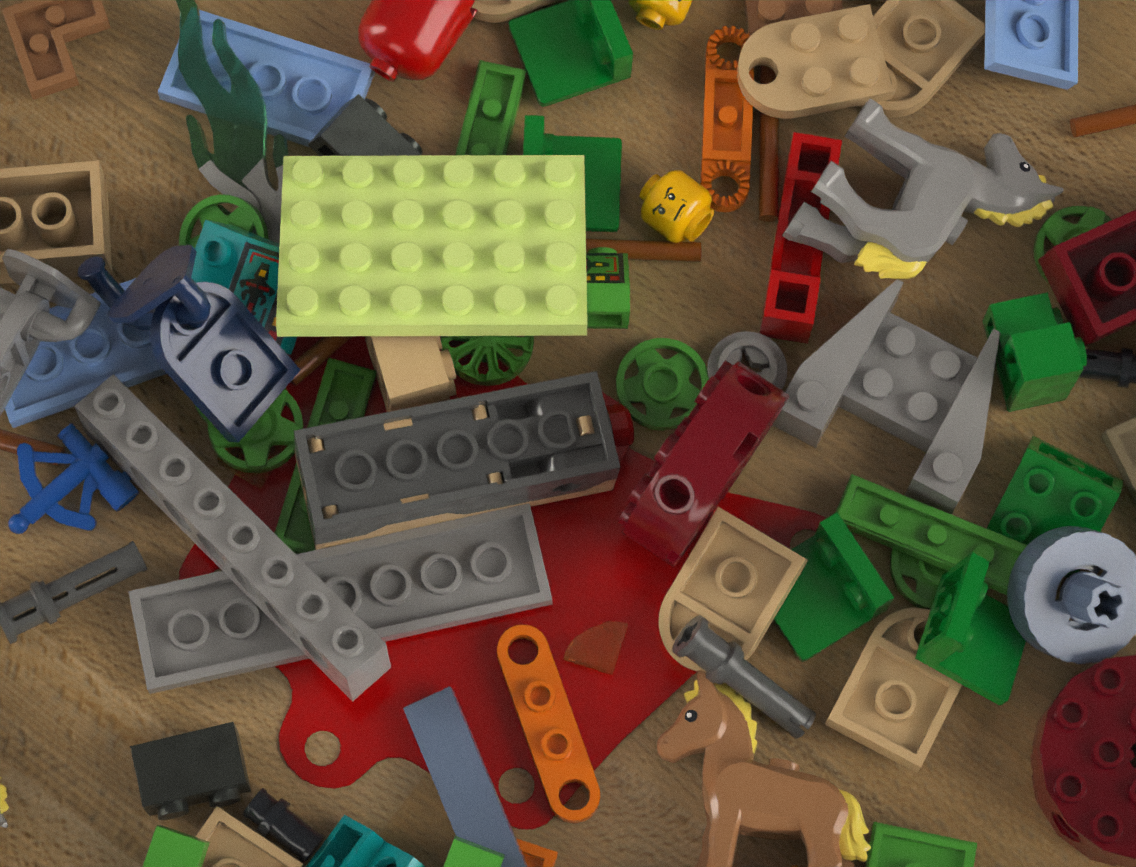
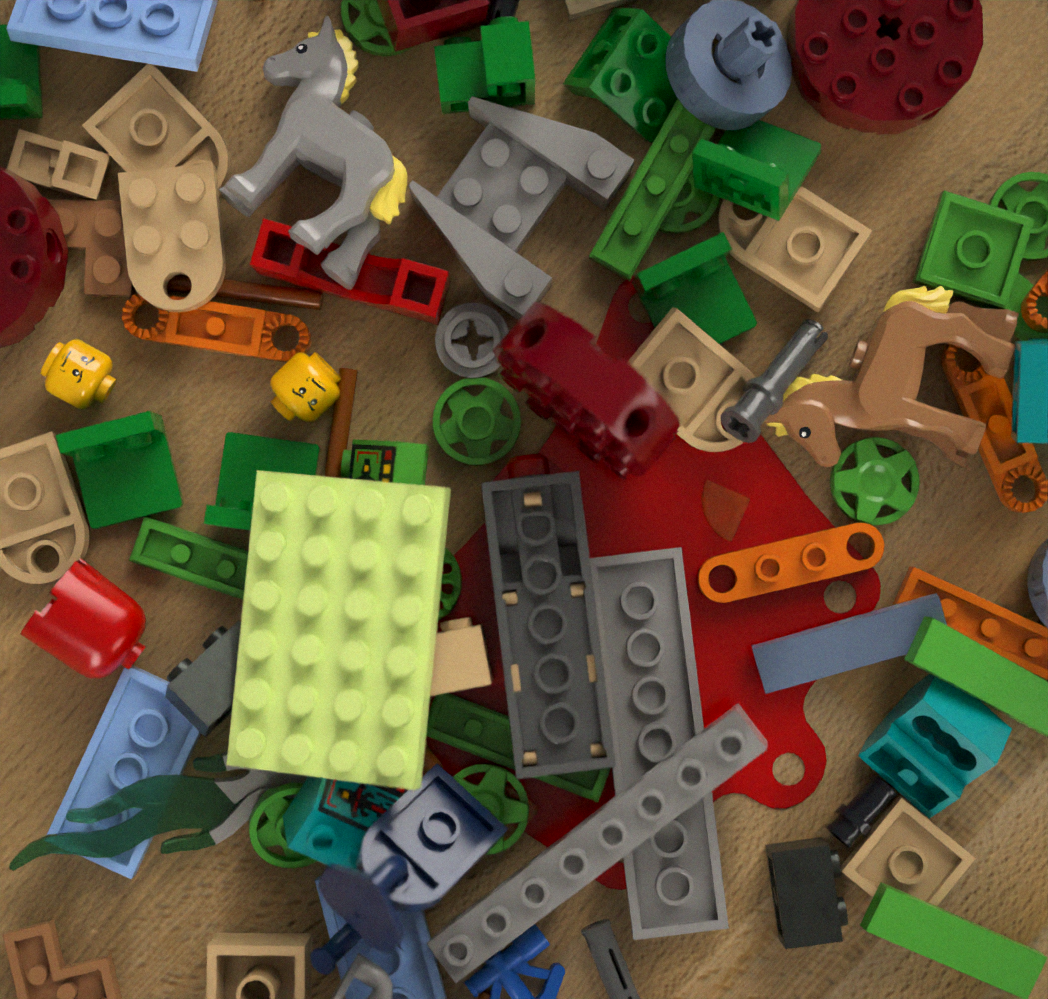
camera: 85 degrees left, 15 degrees up
(647, 808) = (875, 481): none -> bright green wheel

